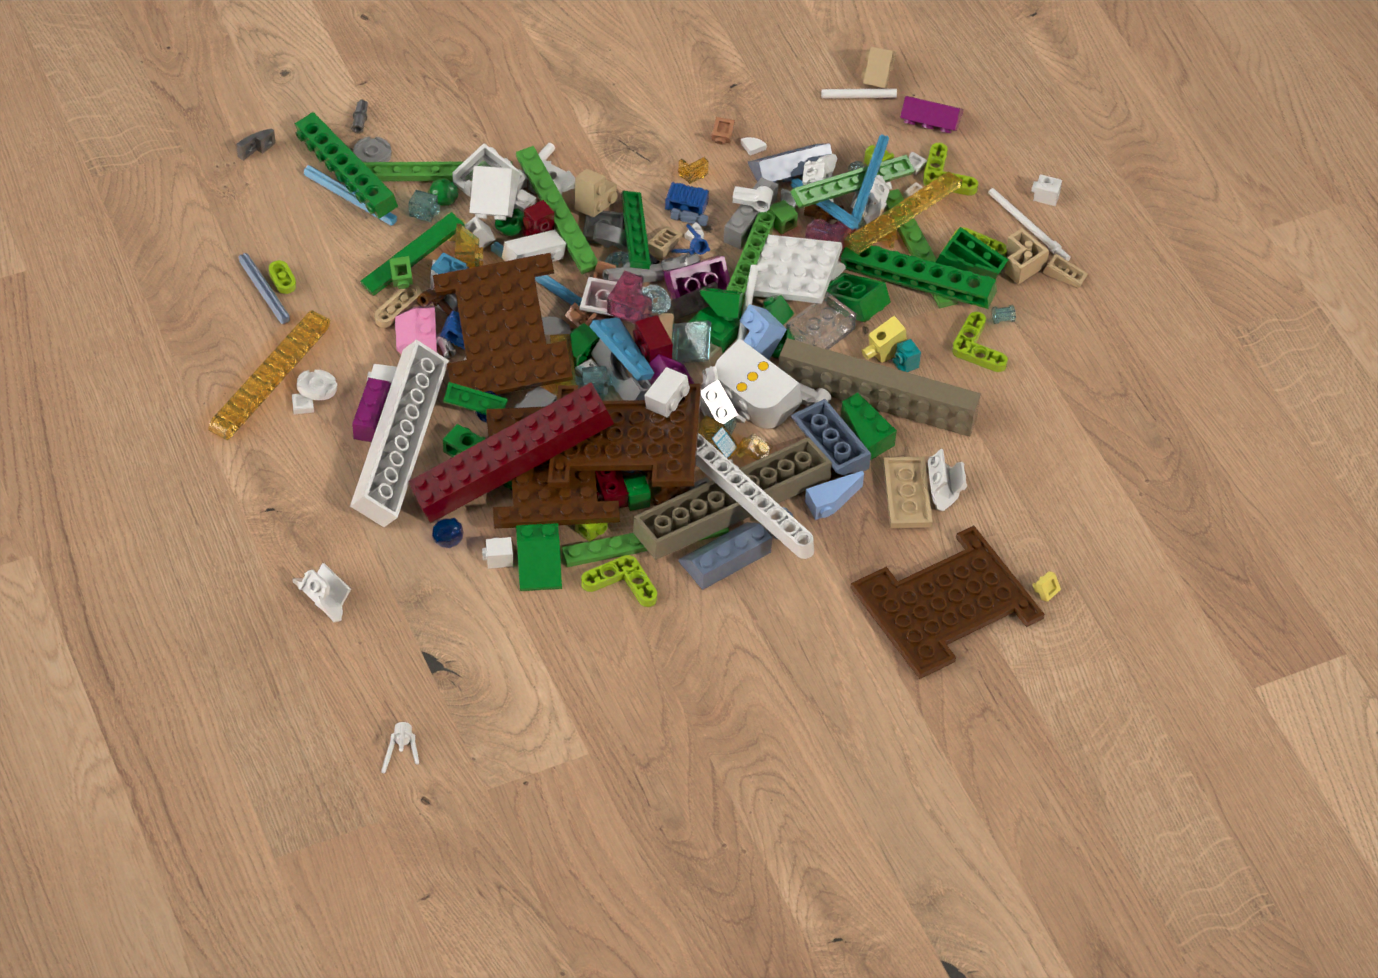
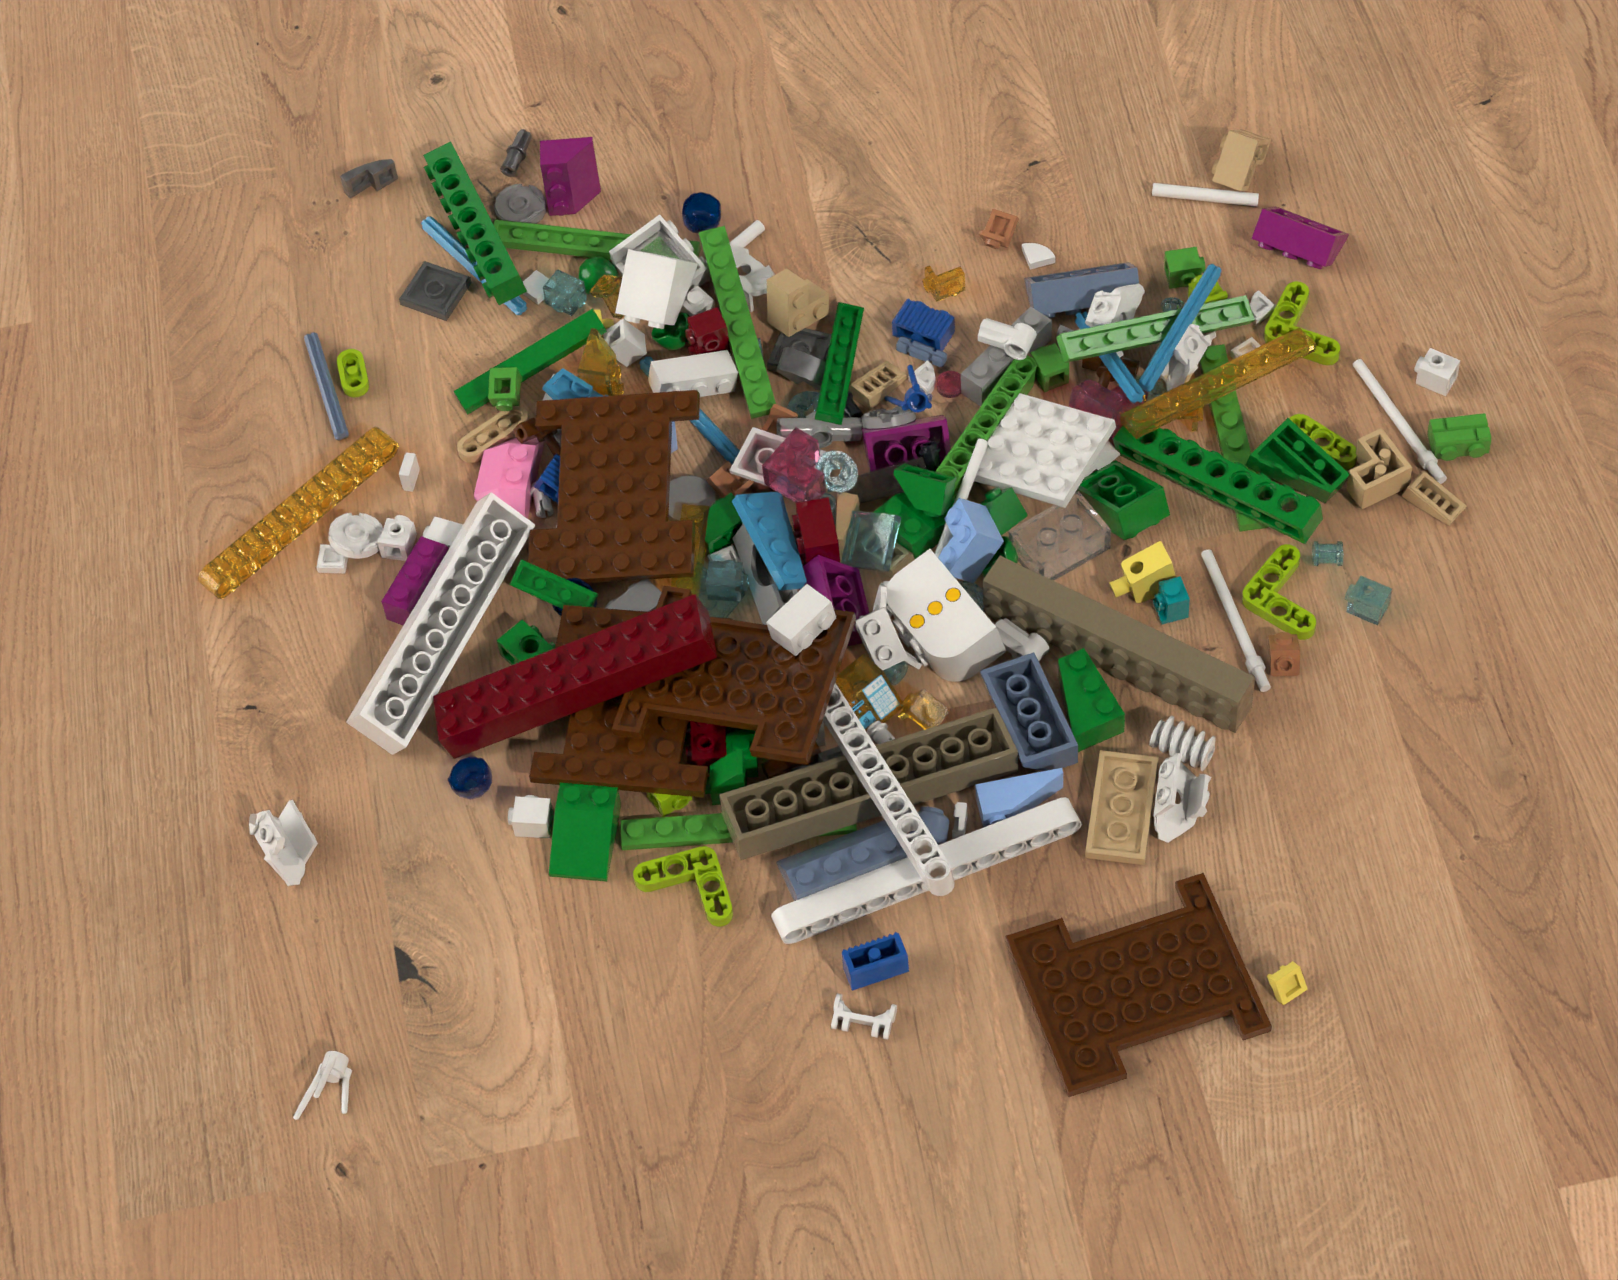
camera: 20 degrees right, 5 degrees up
(326, 215) = (435, 291): none -> dark grey tile
(343, 337) = (409, 472): none -> white tile
(348, 379) = (397, 538): none -> white brick
(403, 205) = (534, 286): none -> white tile
(408, 124) = (569, 174): none -> magenta slope
(461, 201) = (608, 289): none -> clear yellow bracket
(508, 142) = (701, 212): none -> clear blue hair
(632, 505) = (726, 775): none -> green slope
(714, 236) = (949, 384): none -> clear pink tile
(718, 278) = (930, 455): none -> black pin
(755, 650) = (884, 1020): none -> white piece
(767, 610) = (875, 961): none -> blue brick
(777, 555) = (901, 880): none -> white beam
(799, 513) = (960, 822): none -> white tile
(857, 141) = (1182, 266): none -> bright green brick
(934, 443) = (1183, 742): none -> white piece
(950, 362) = (1253, 662): none -> white bar
(992, 381) = (1284, 654): none -> nougat bracket
(1038, 340) = (1368, 600): none -> clear light blue brick
(1072, 229) = (1459, 436): none -> bright green brick

